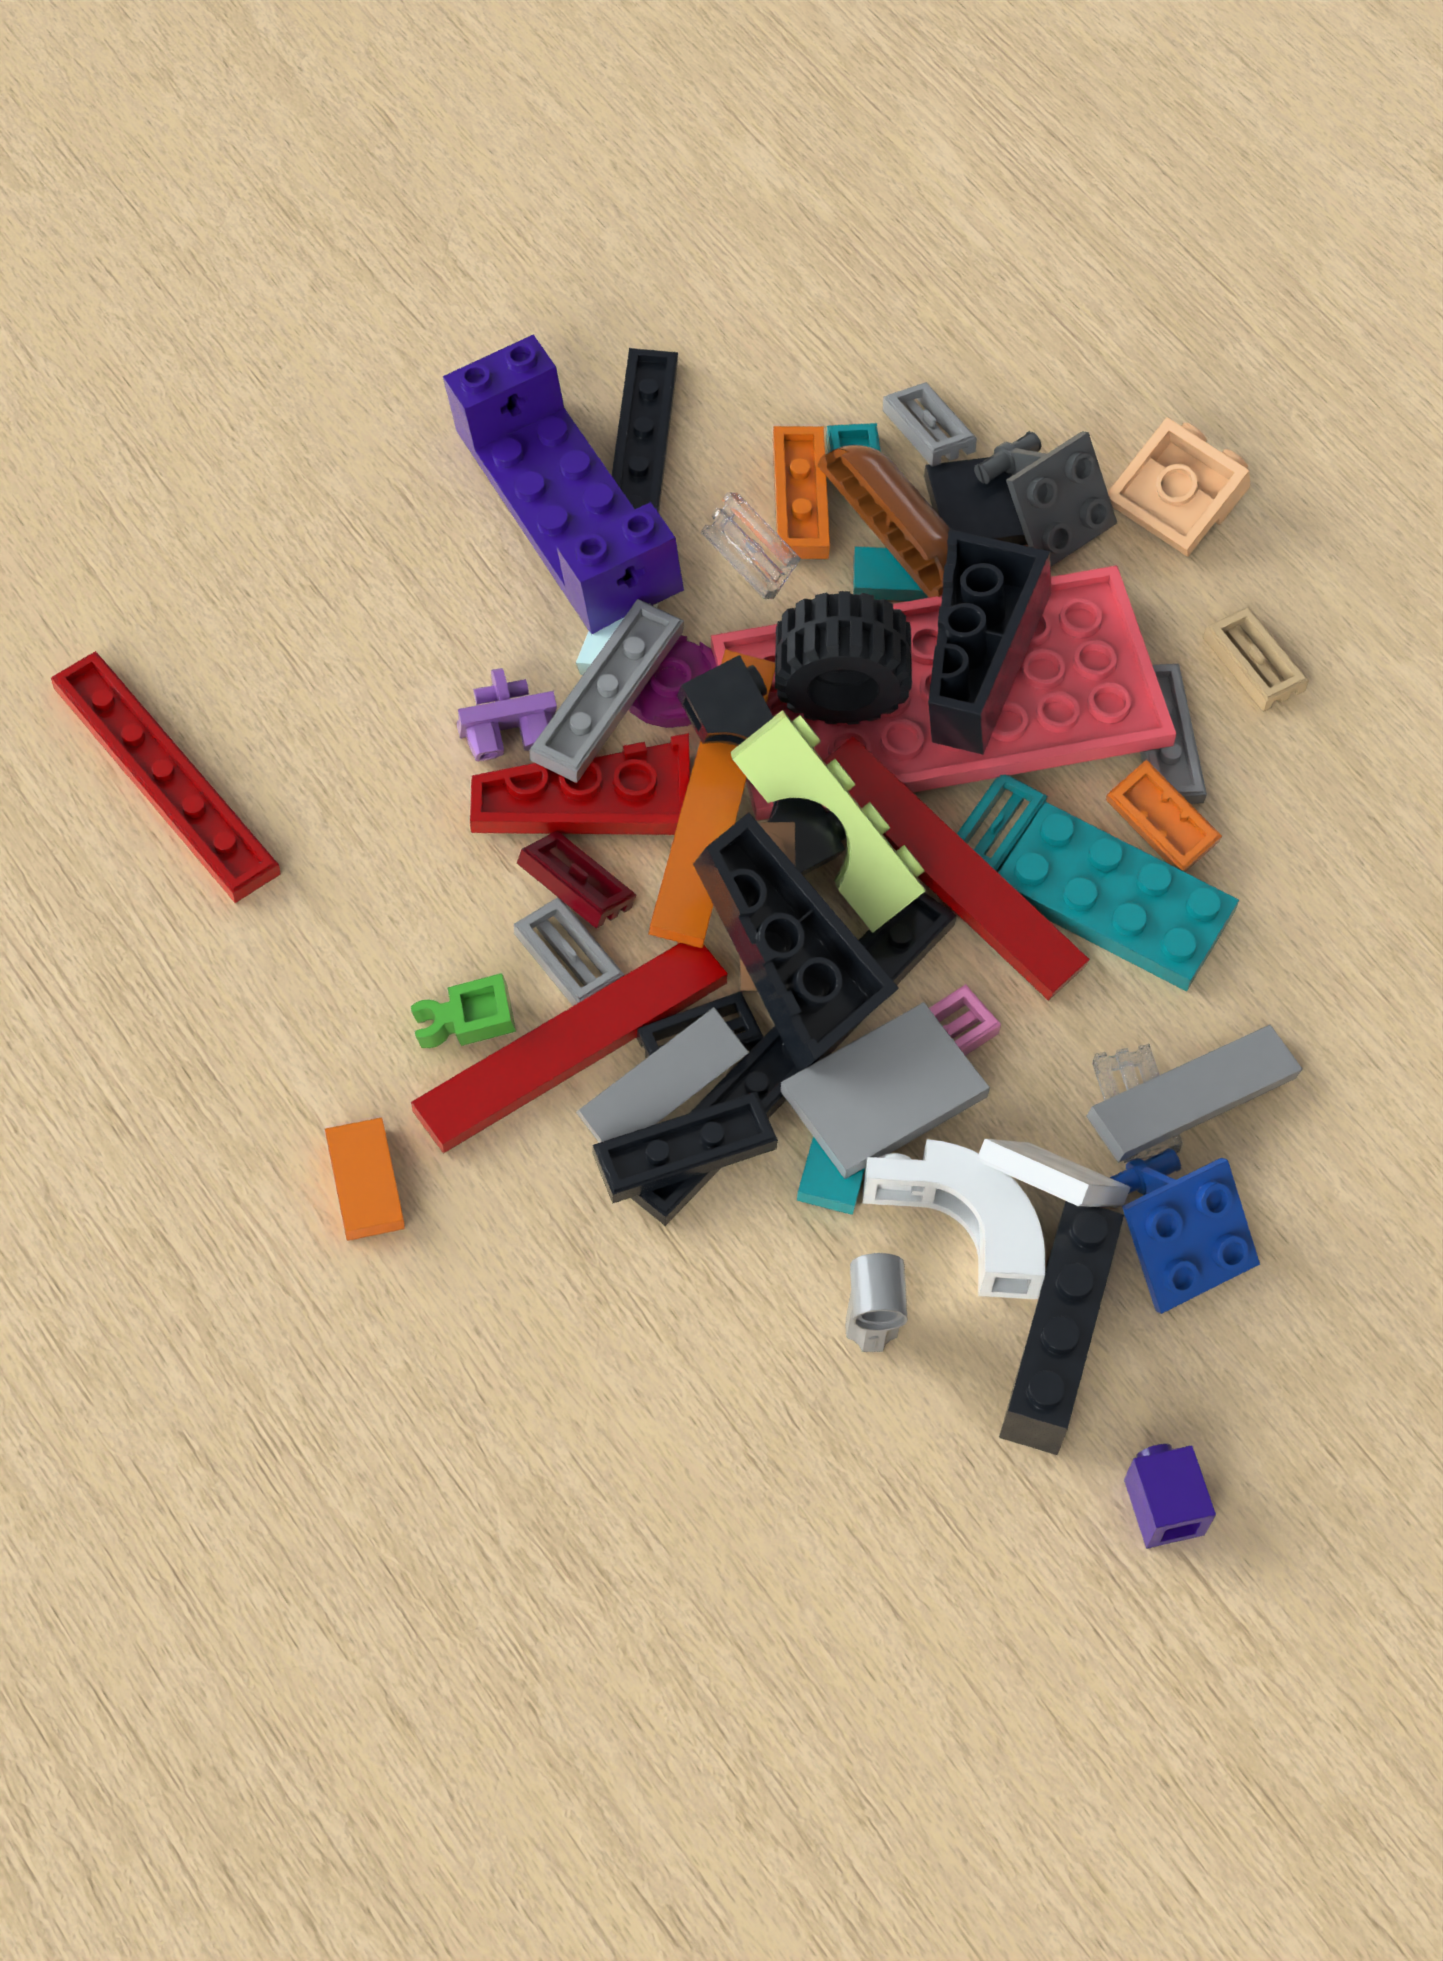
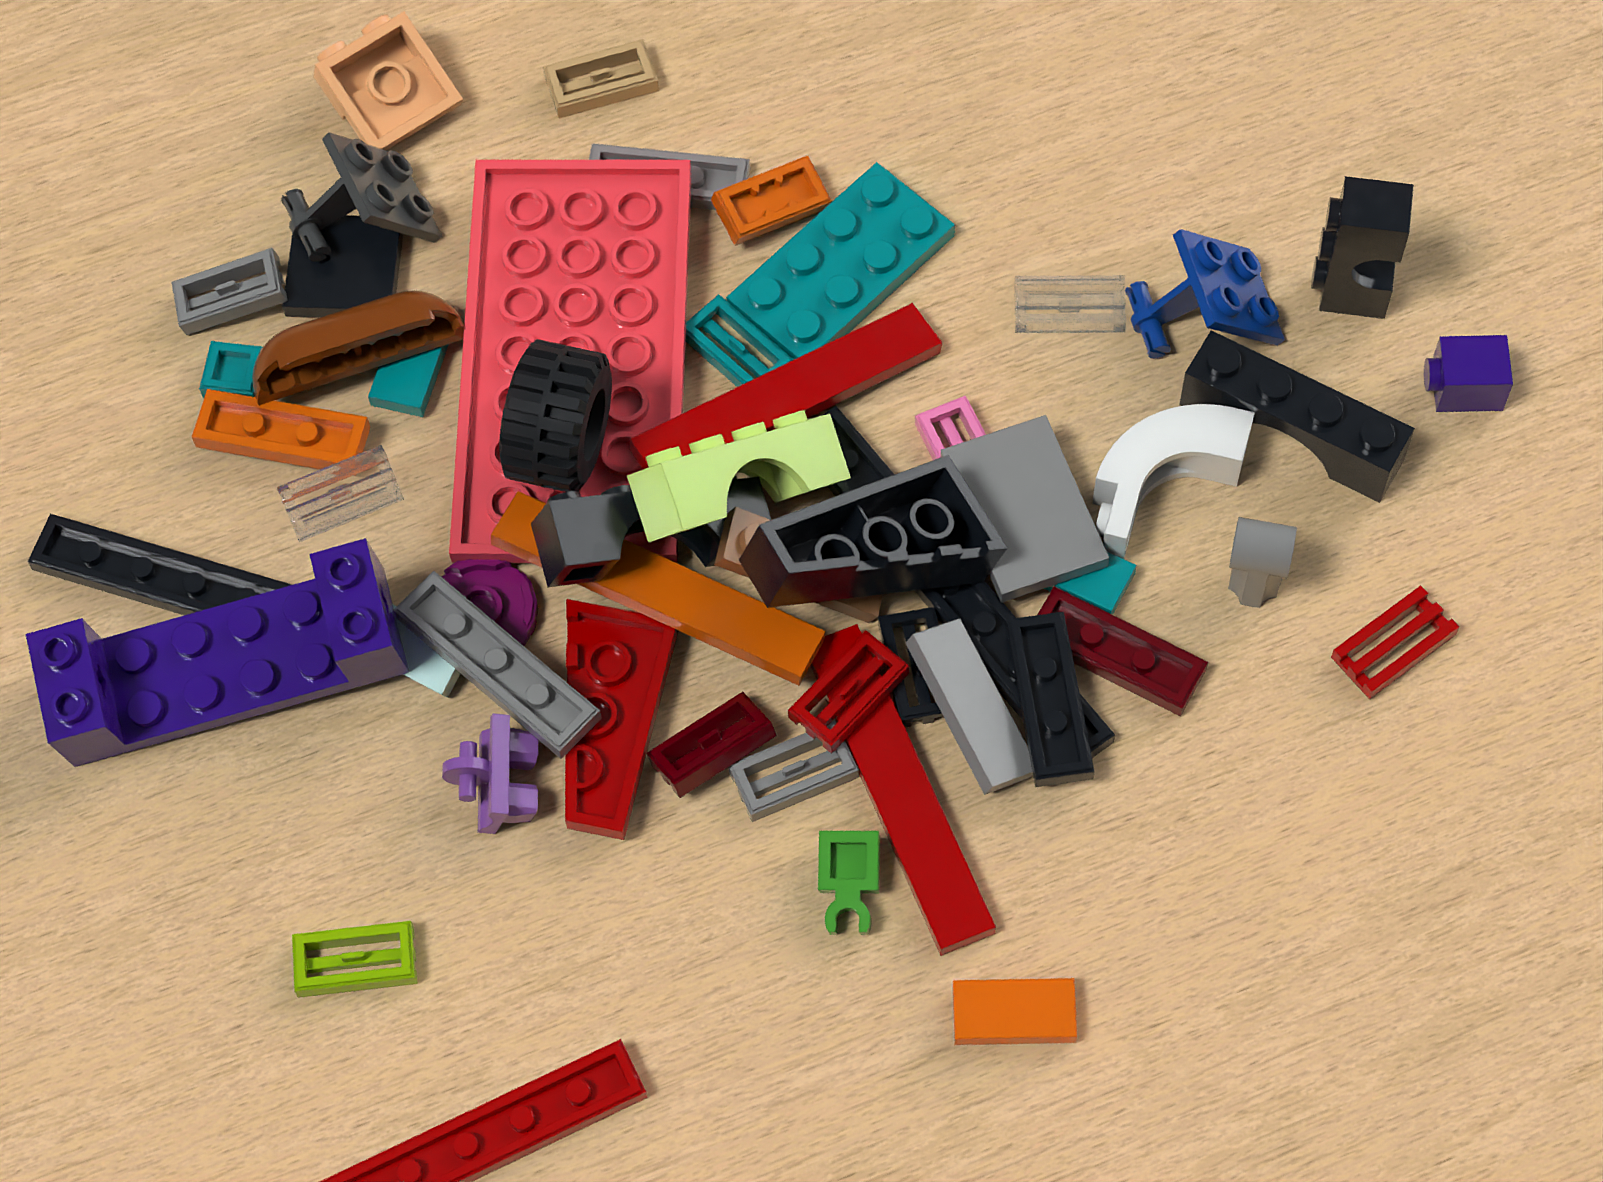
camera: 70 degrees left, 5 degrees up
(330, 690) = (360, 980): none -> lime tile
(646, 982) = (864, 707): none -> red tile
(759, 1215) = (1127, 653): none -> dark red tile
(850, 1451) = (1429, 614): none -> red tile
(983, 634) = (544, 289): black wedge -> none
(1053, 1173) = (1157, 377): white tile -> none
(1193, 1093) = (1079, 251): light grey tile -> none
(1260, 1335) = (1360, 246): none -> black arch

